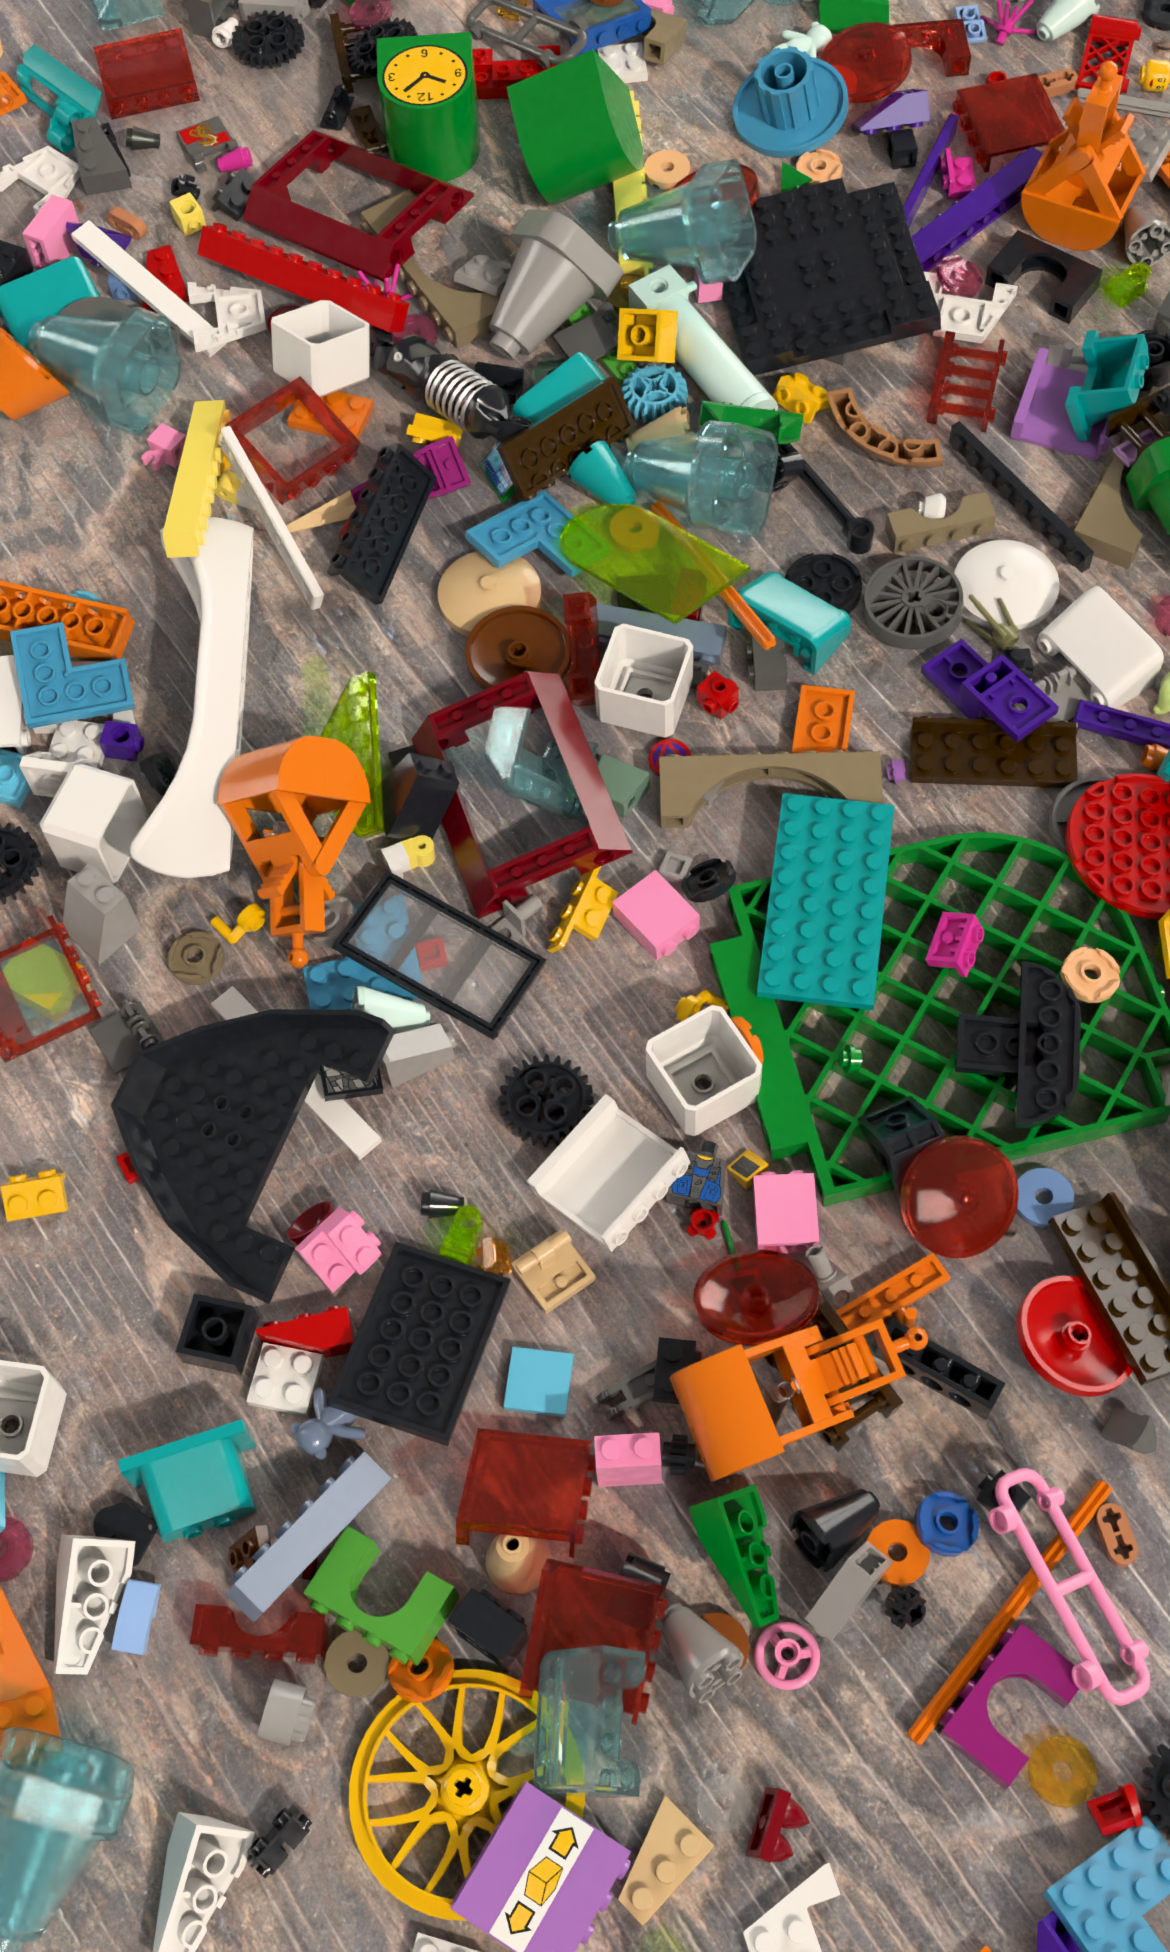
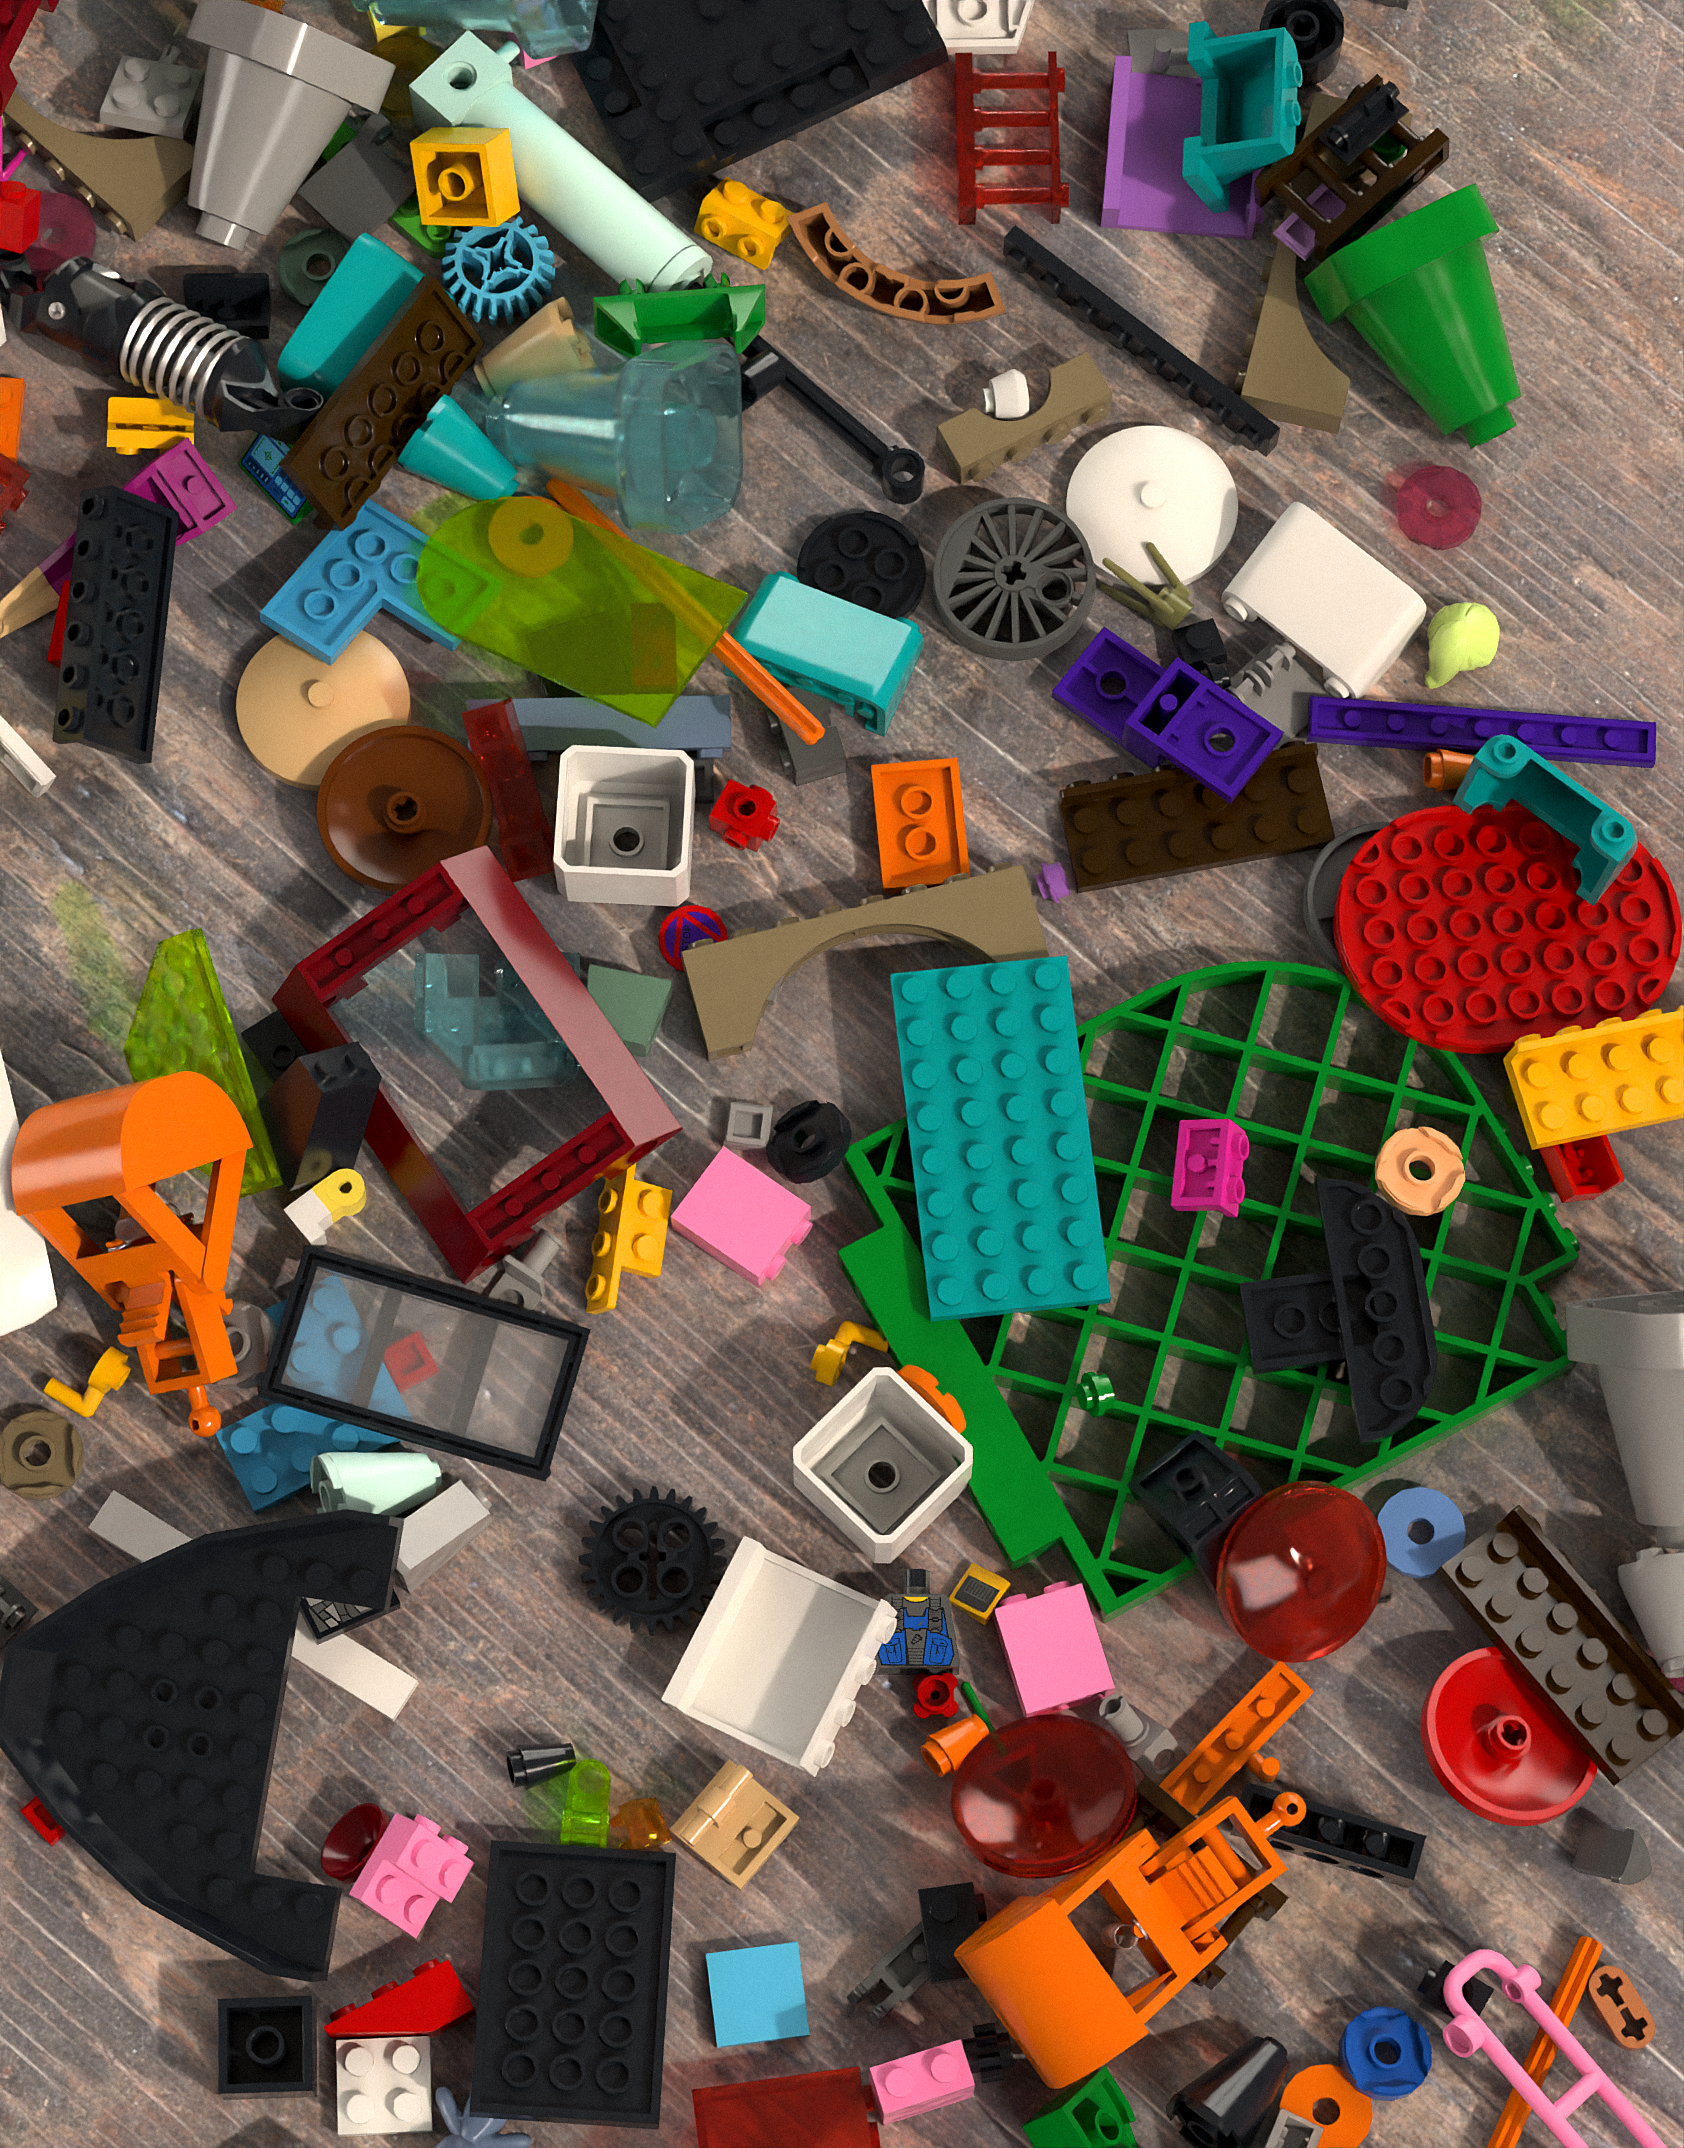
camera: 20 degrees left, 10 degrees up
(703, 1255) = (949, 1746): none -> orange cone

